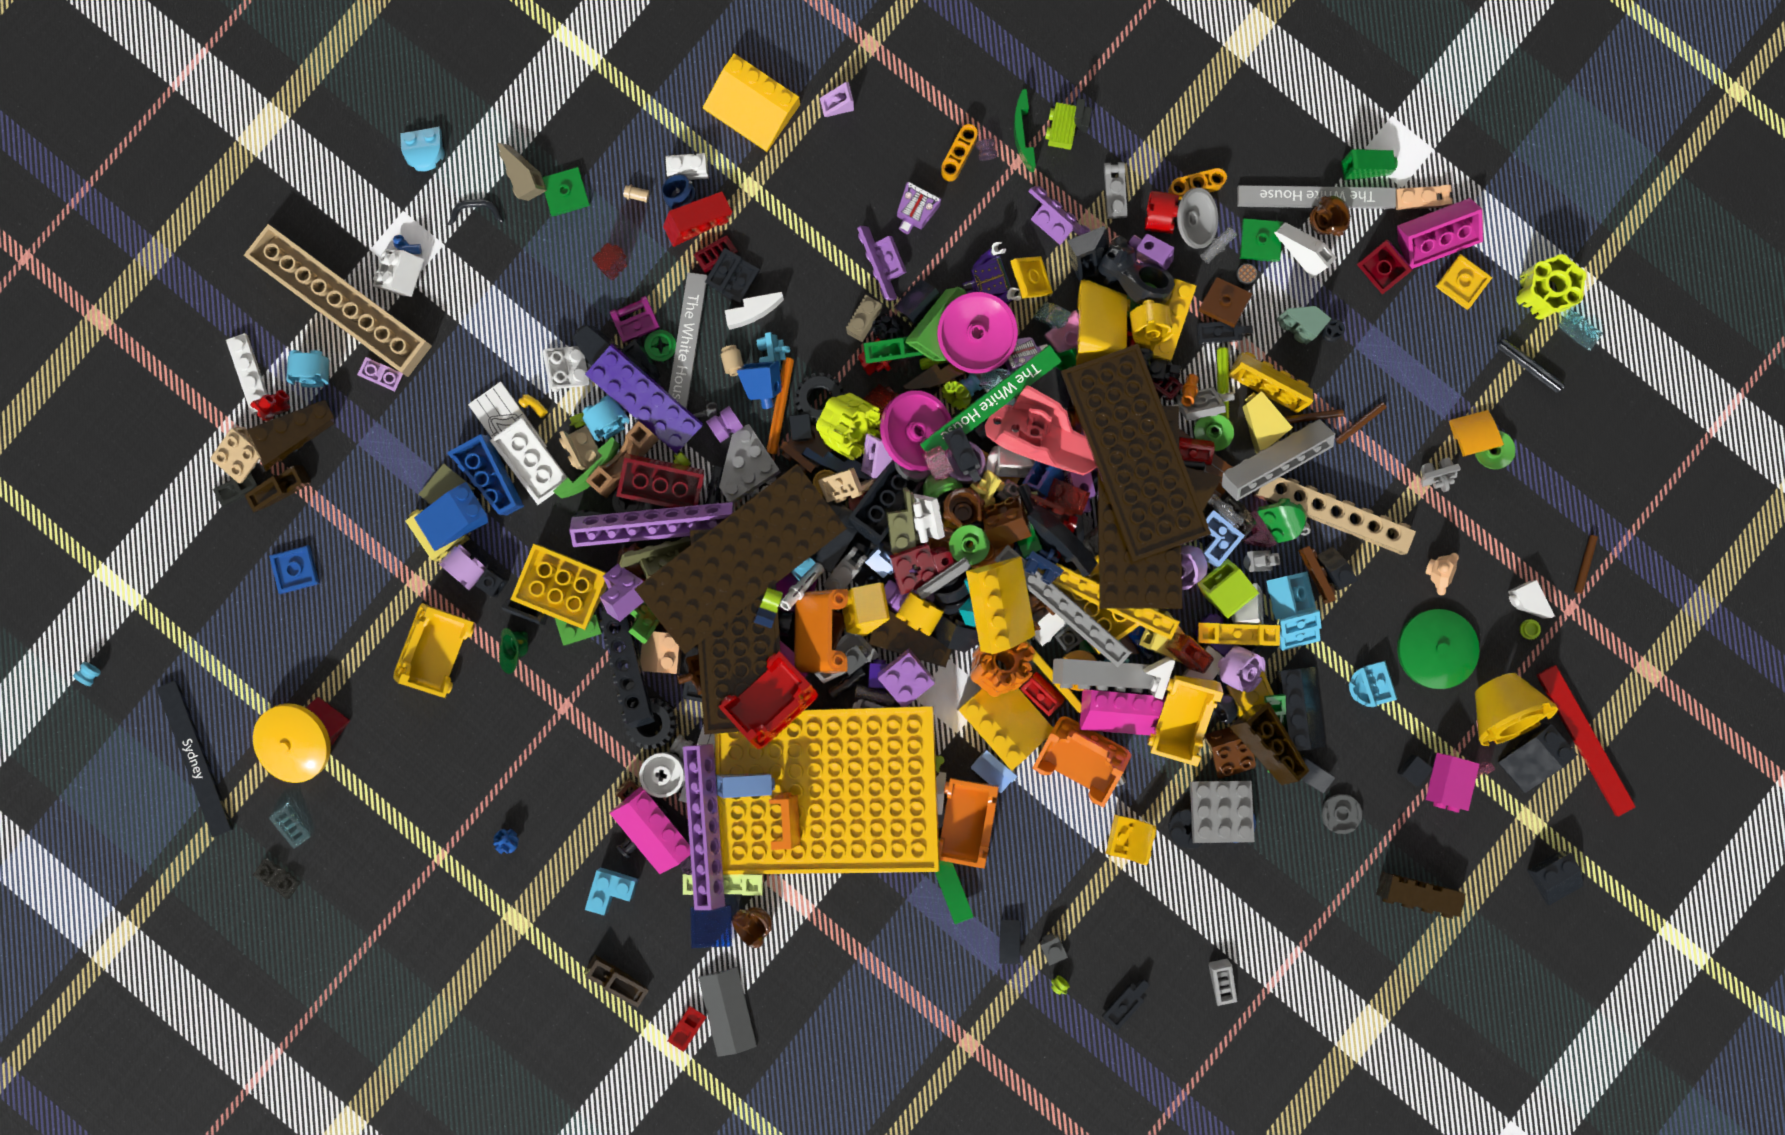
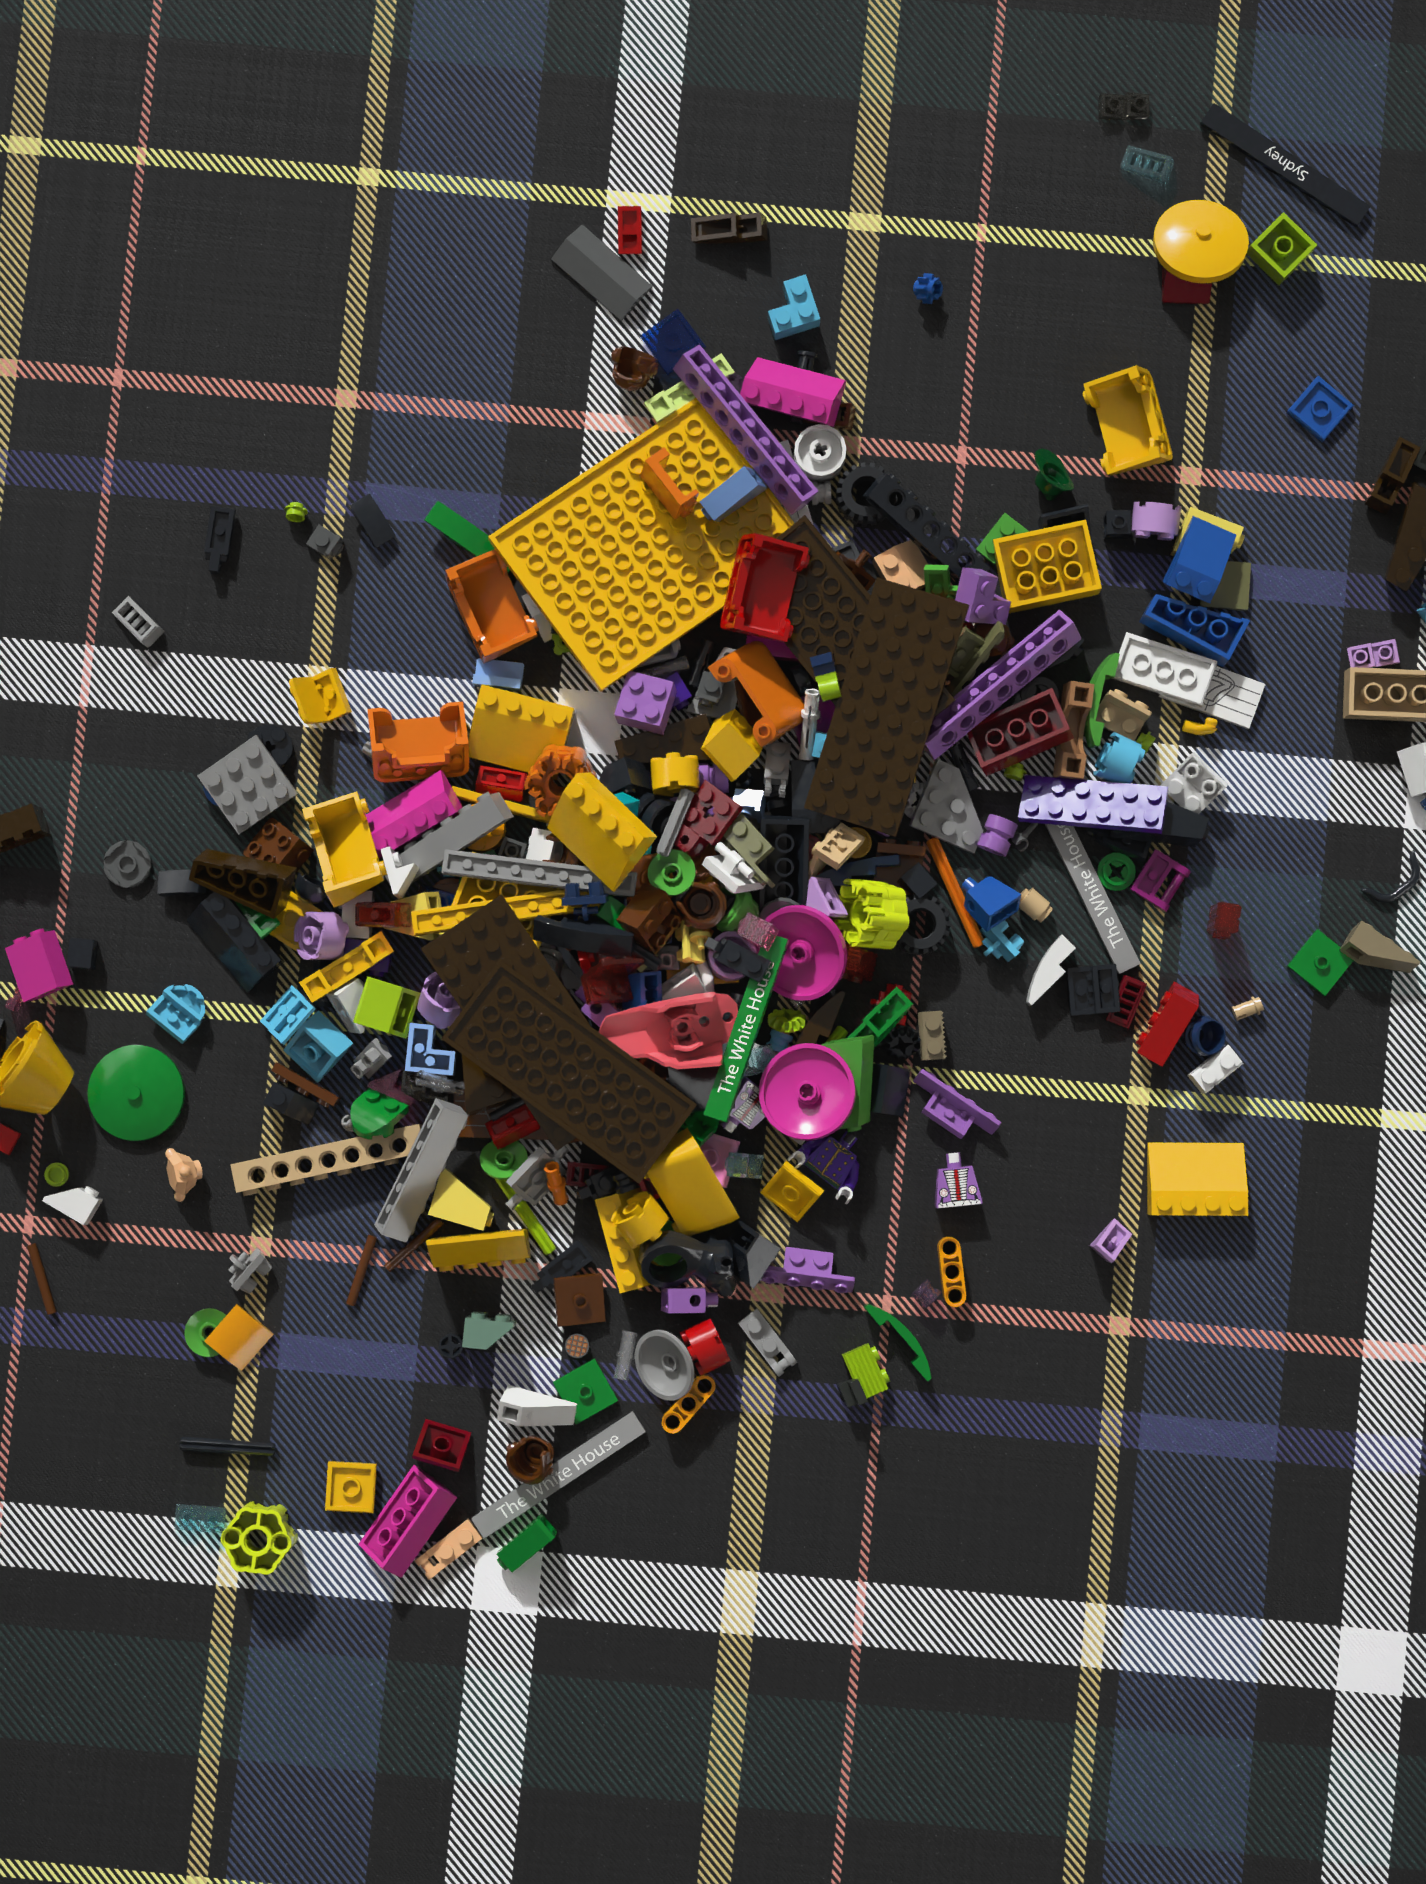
camera: 145 degrees right, 0 degrees up
(239, 699) = (1281, 248): none -> lime brick

